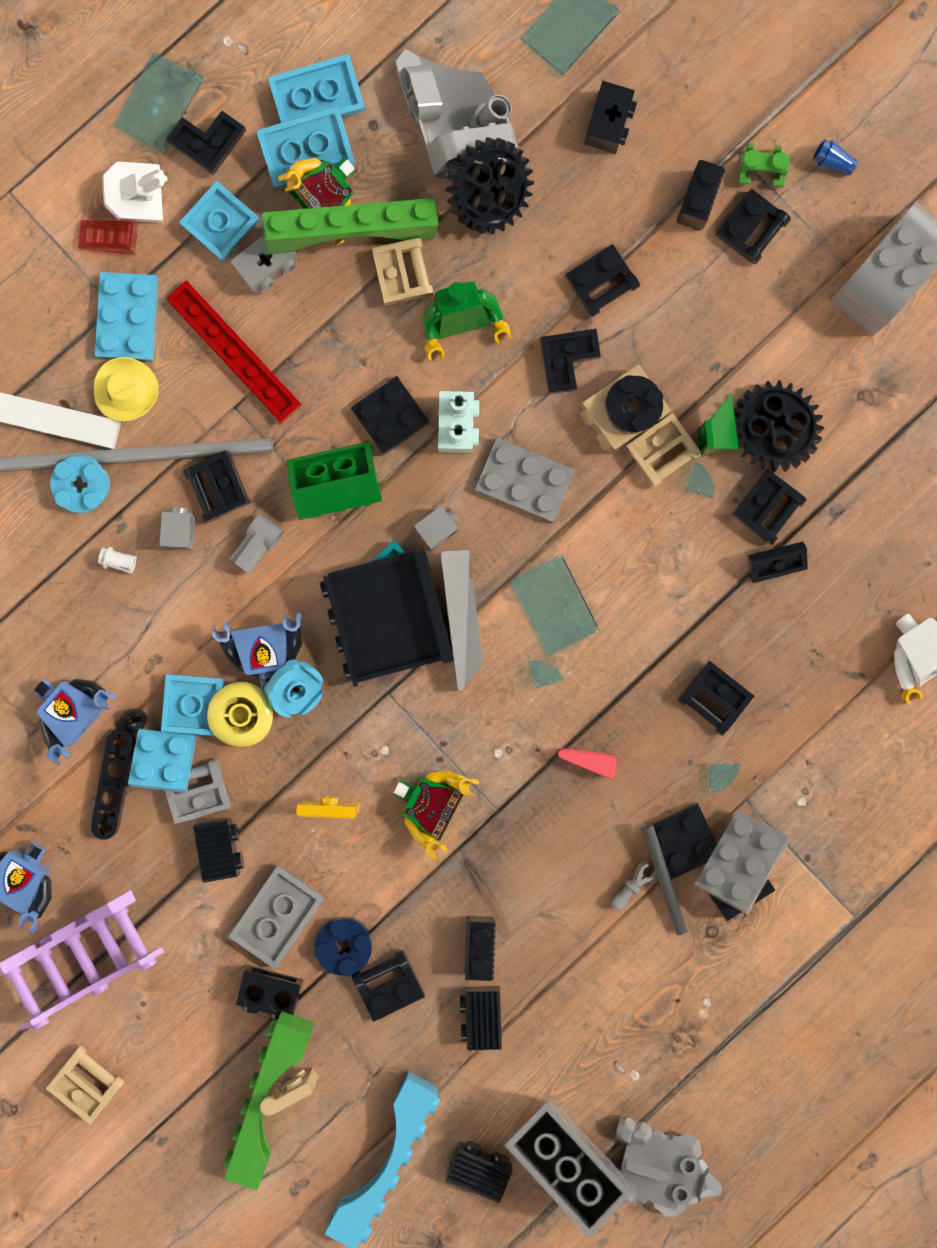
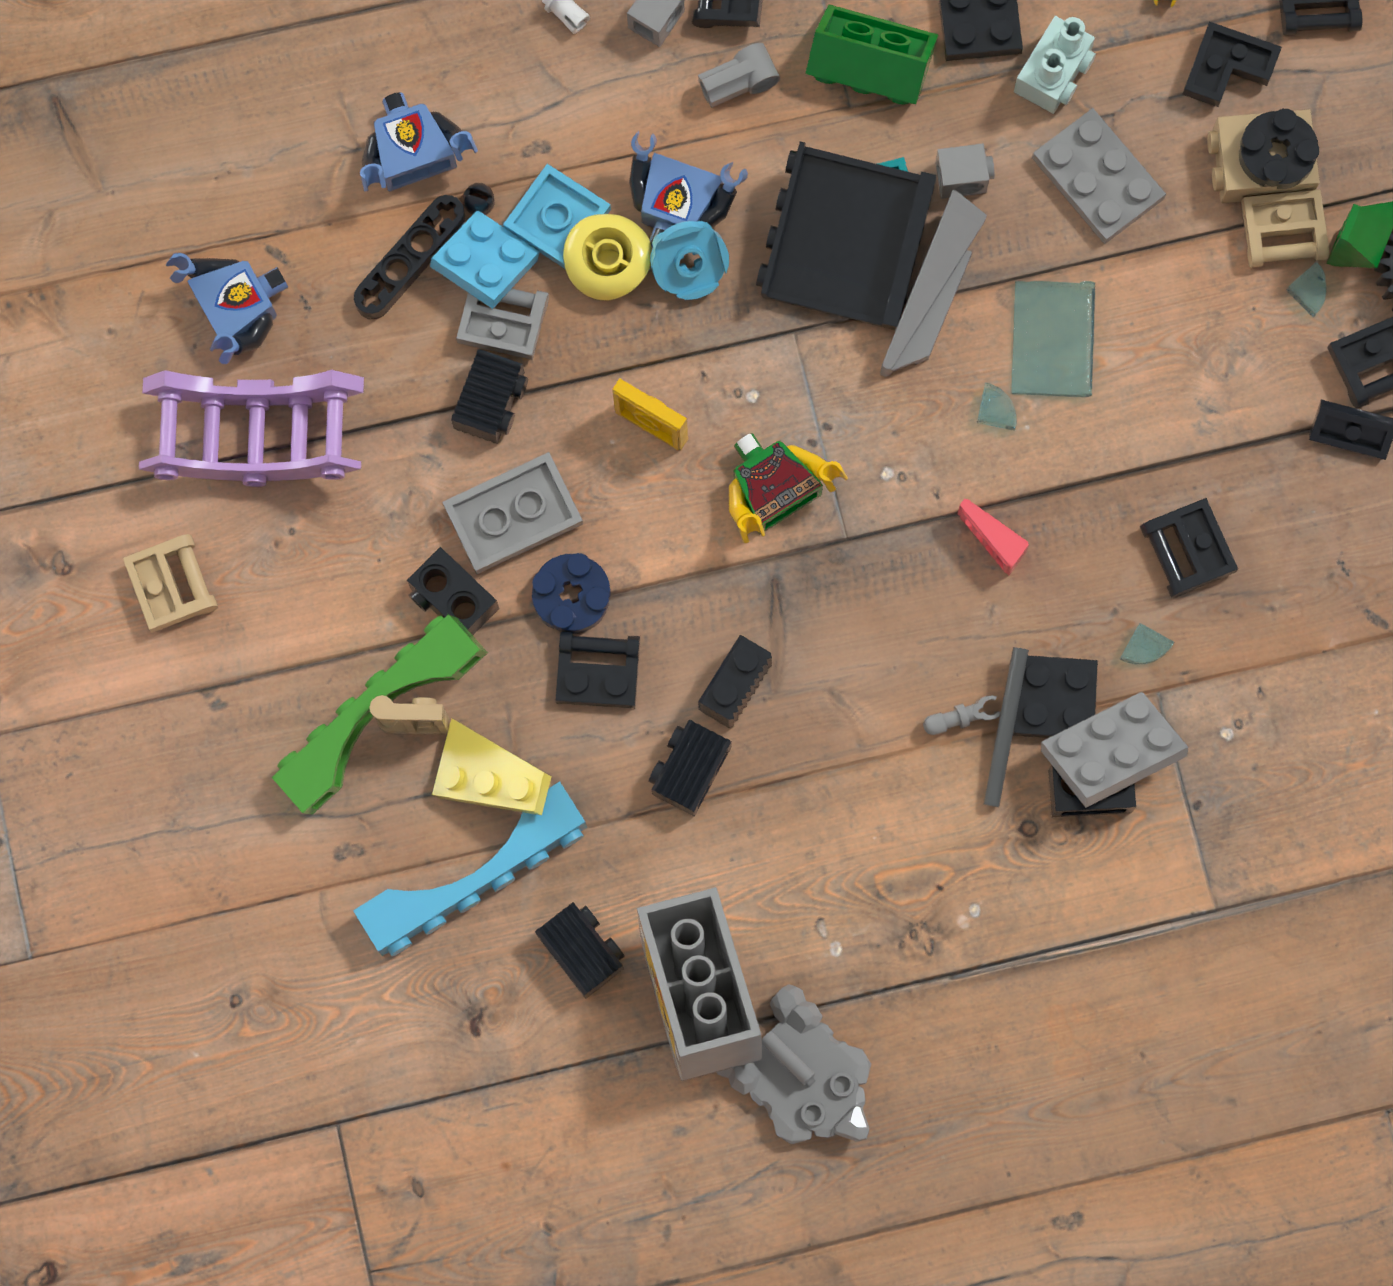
camera: 30 degrees right, 10 degrees down
(359, 1098) = (487, 774): none -> light yellow wing

